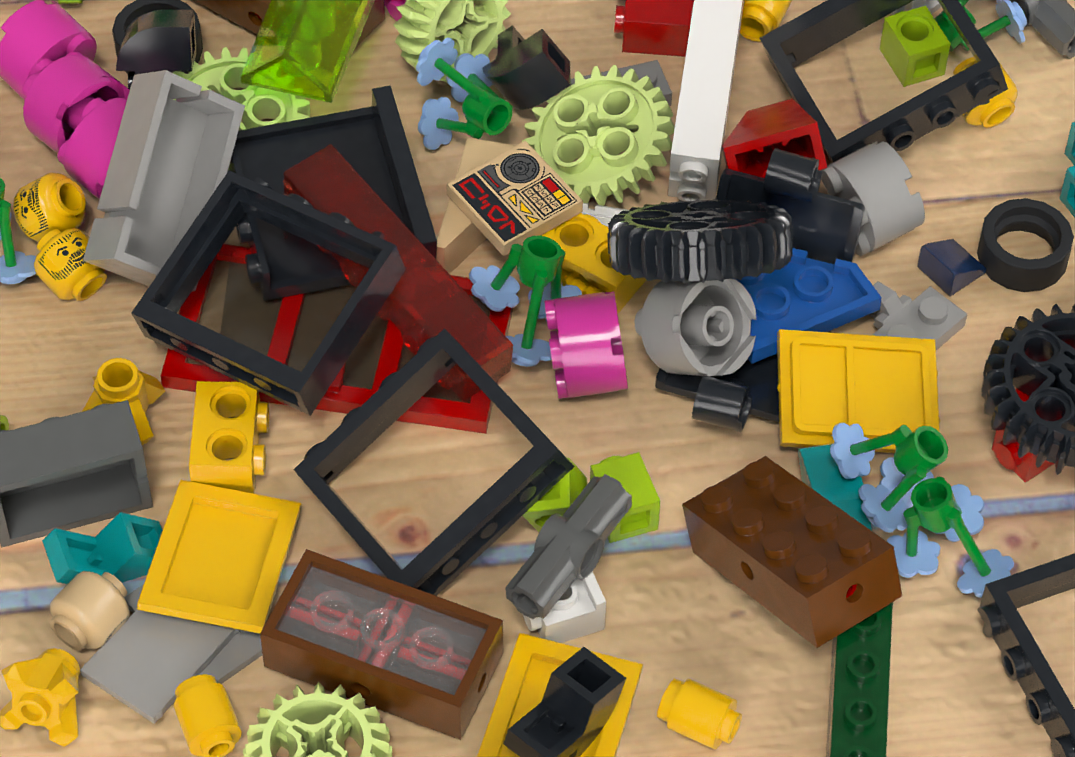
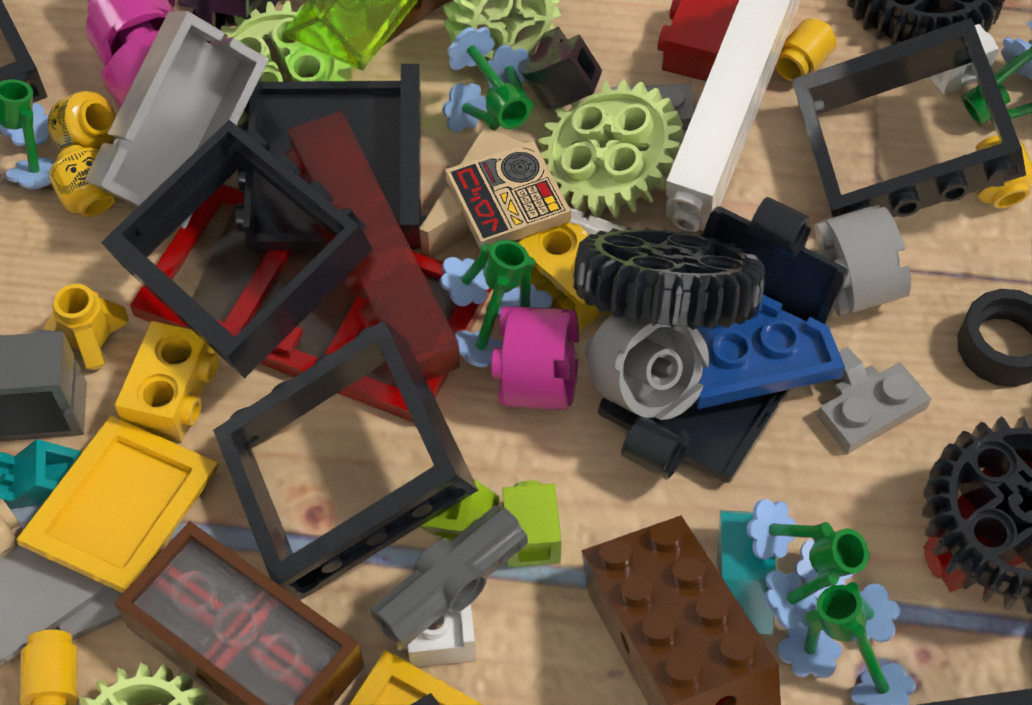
camera: 15 degrees right, 5 degrees up
(773, 126) = (776, 173): red slope -> none
(853, 381) = (799, 454): yellow piece -> none
(914, 46) = (944, 113): lime brick -> none
(949, 265) = (926, 343): dark blue slope -> none

